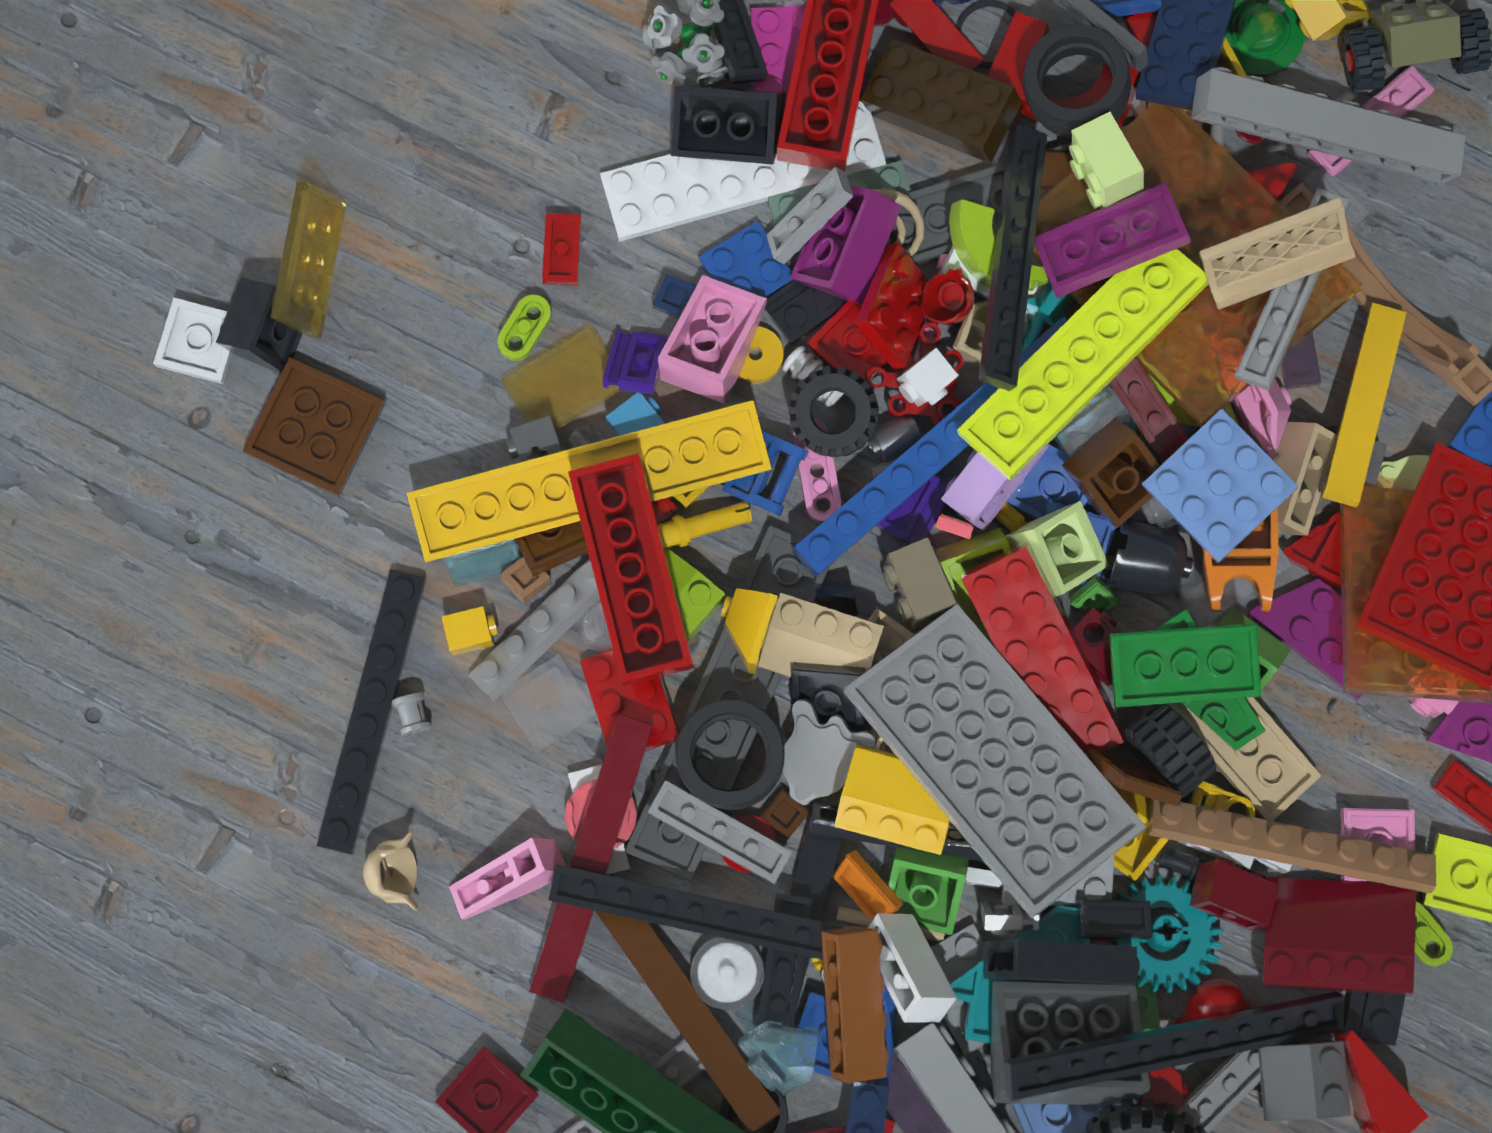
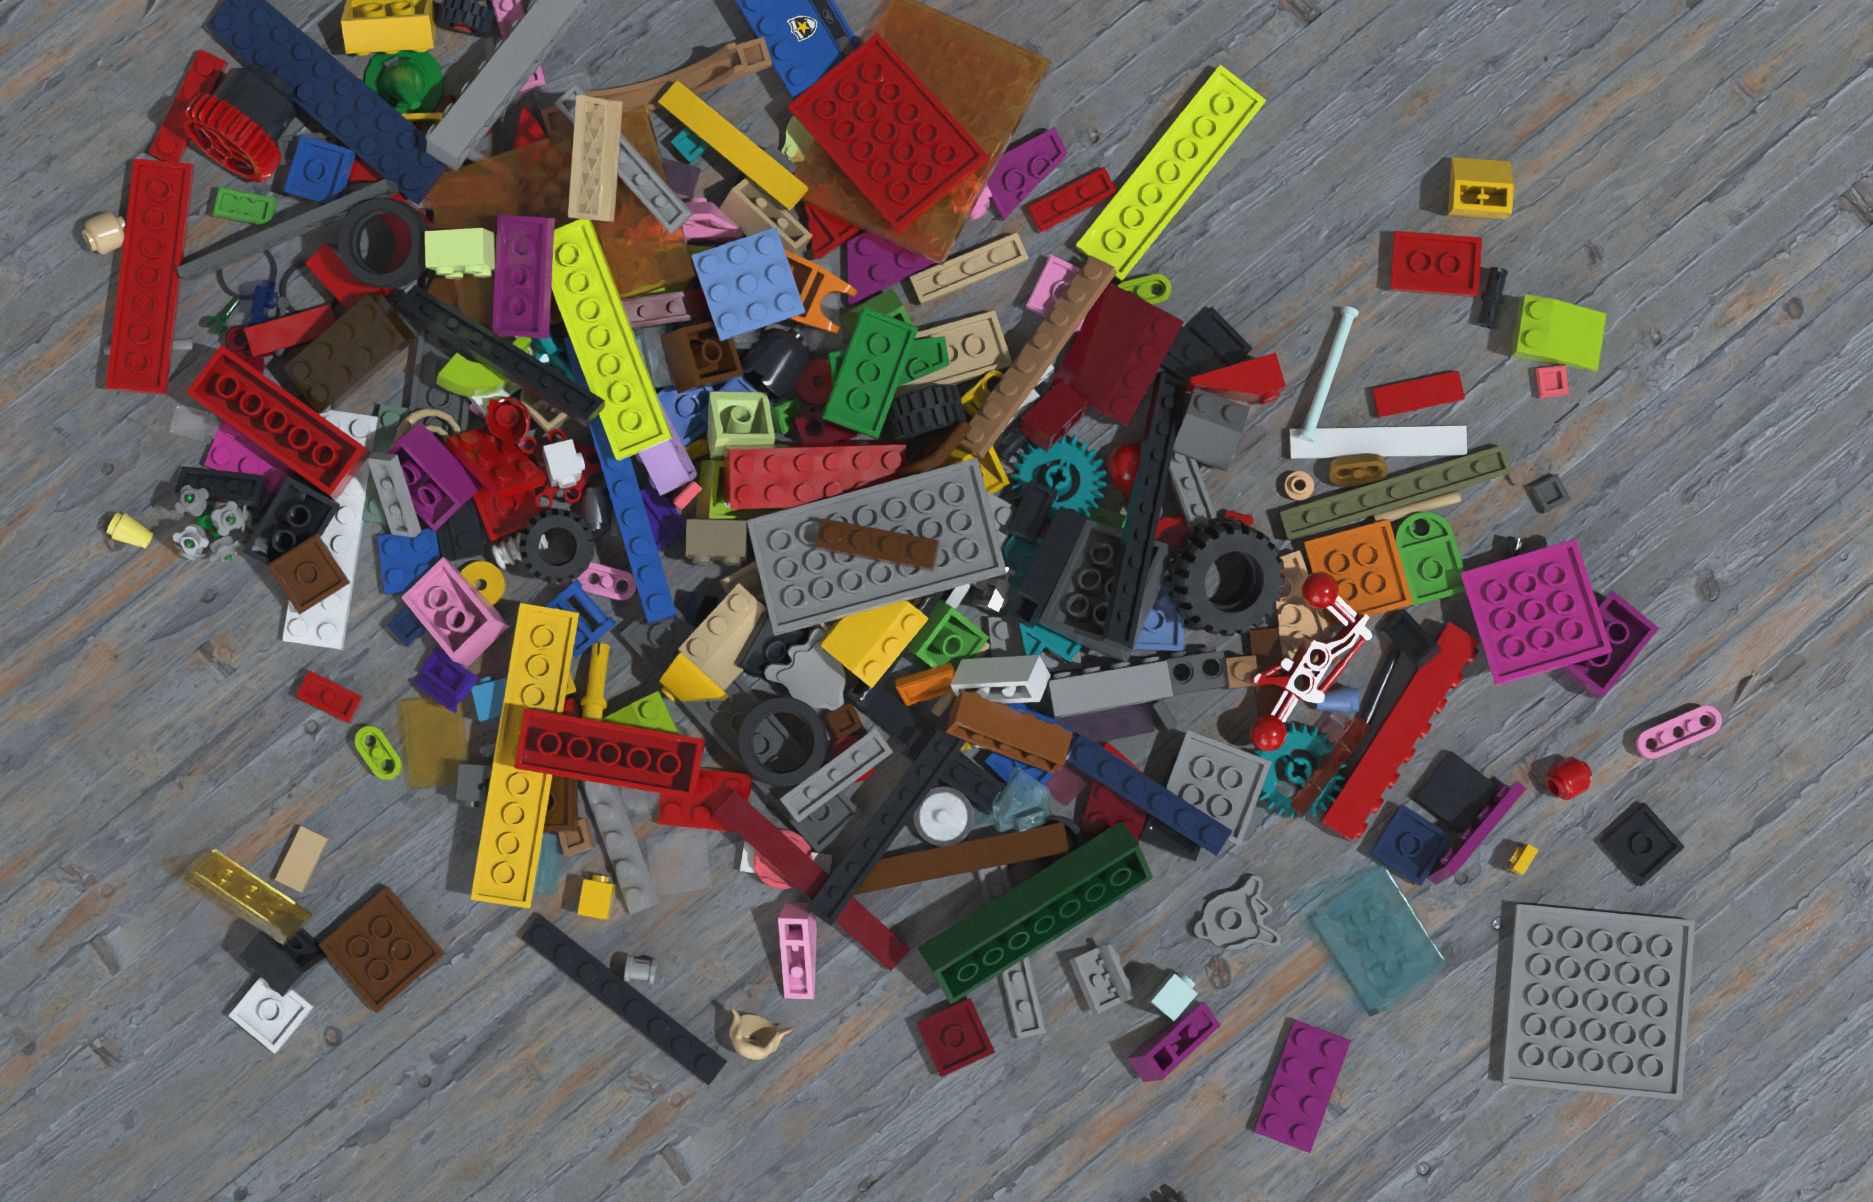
camera: 70 degrees left, 5 degrees up
(375, 299) = (301, 859): none -> tan tile
(683, 165) = (308, 573): none -> reddish brown tile
(825, 1097) = (1066, 784): none -> clear pink tile
(961, 12) = (283, 303): none -> dark grey hinge
(996, 759) = (877, 544): none -> reddish brown plate
(1136, 603) = (804, 386): none -> red piece
(1340, 359) = (689, 145): none -> teal plate
(1354, 726) = (969, 268): none -> tan plate
(1414, 1047) = (1221, 337): none -> black tile

